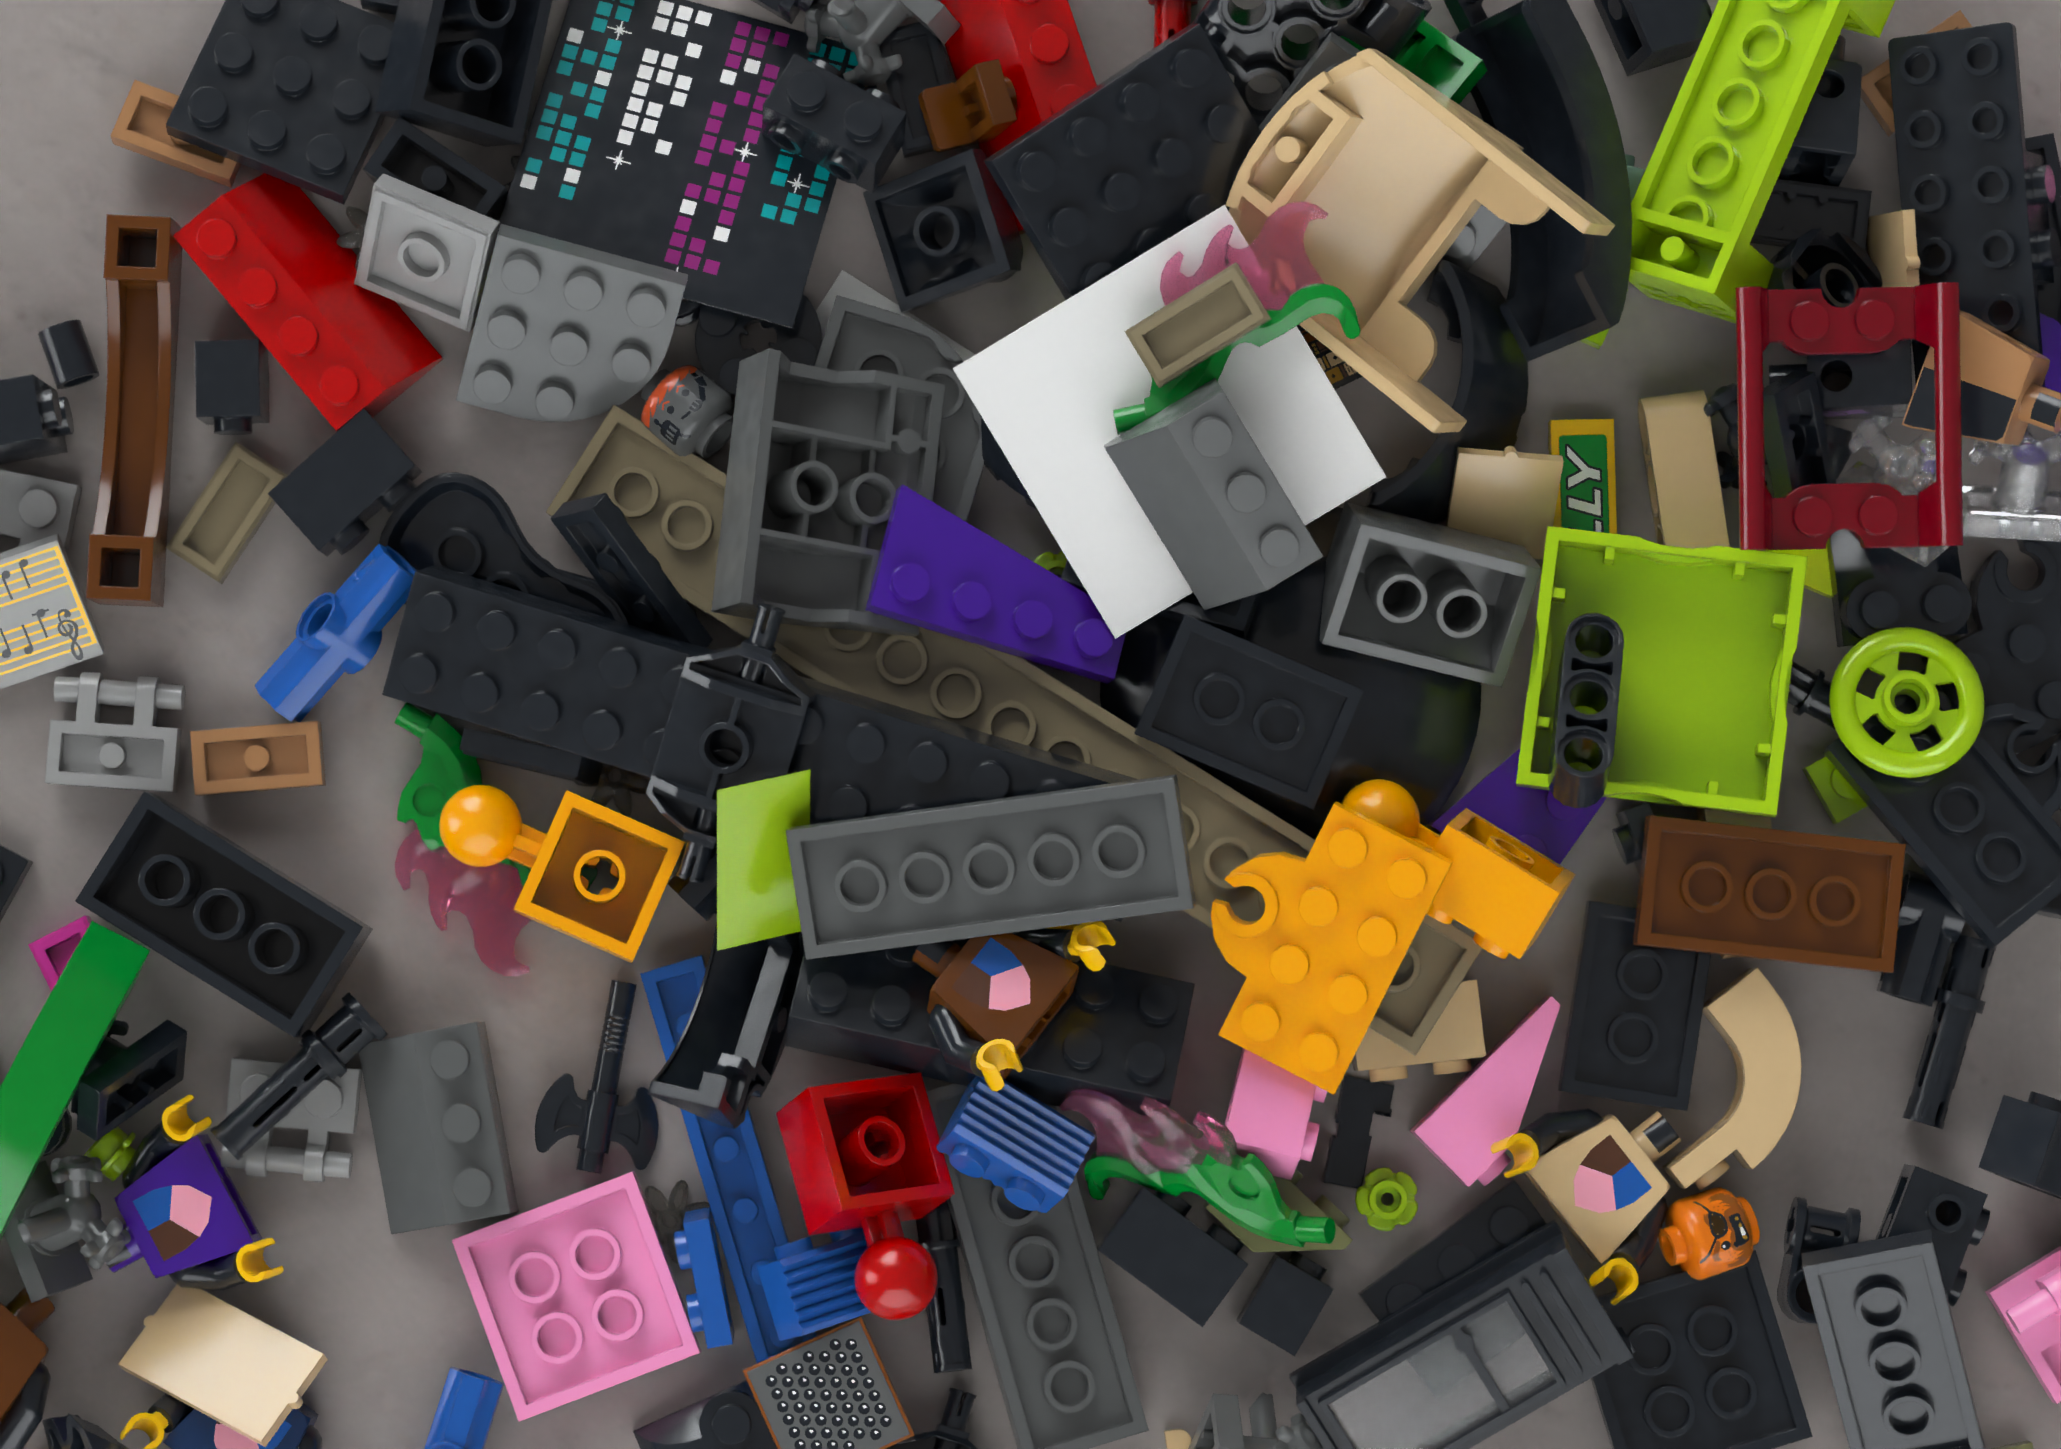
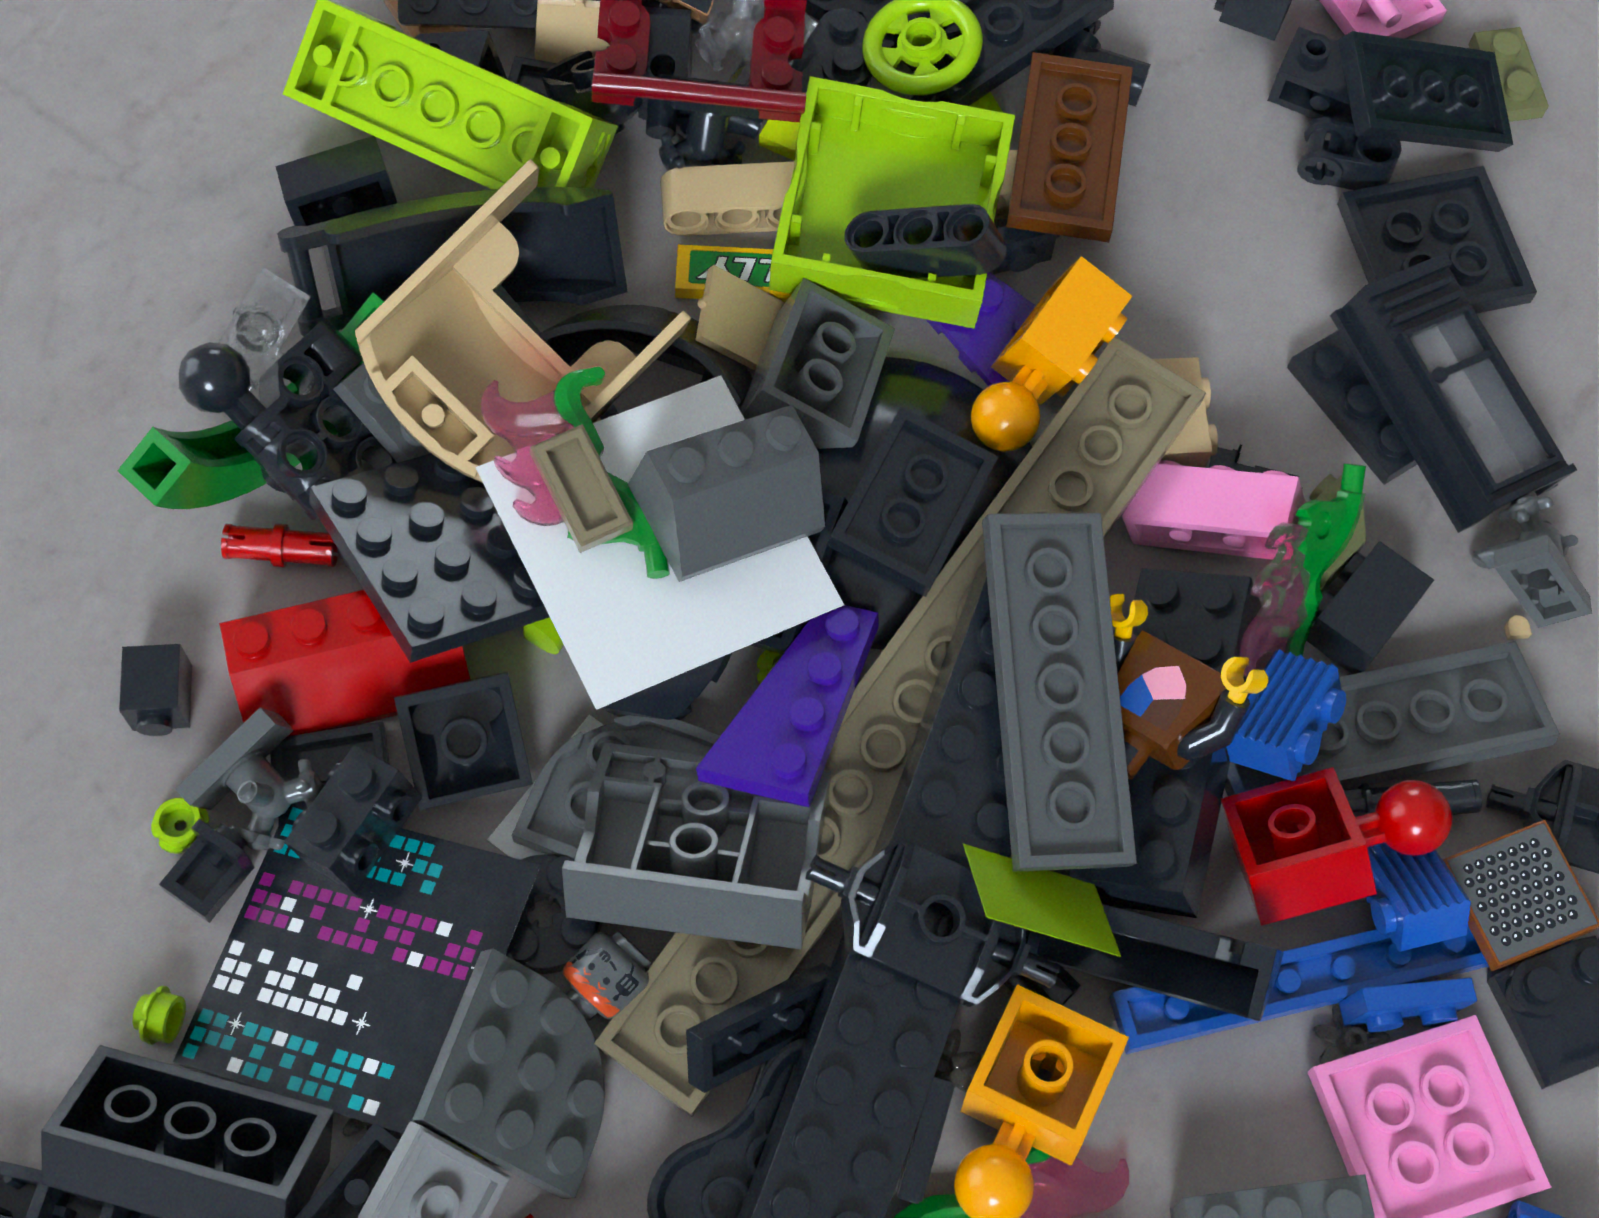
camera: 90 degrees left, 20 degrees down
(600, 1117) = (1257, 1098): black piece -> none
(970, 109) = (355, 700): reddish brown bracket -> none
(1286, 1301) = (1403, 523): black brick -> none
(1325, 942) = (1116, 443): light orange plate -> none
(1385, 1181) = (1306, 464): lime plate -> none
(1489, 1101) = (1245, 373): bright pink slope -> none
(1599, 1184) = (1295, 289): torso -> none
(1632, 1015) = (1164, 263): black plate -> none
(1709, 1233) = (1329, 223): orange head -> none
(1767, 1081) = (1214, 180): tan arch -> none
(1949, 1031) = (1171, 60): black pin -> none

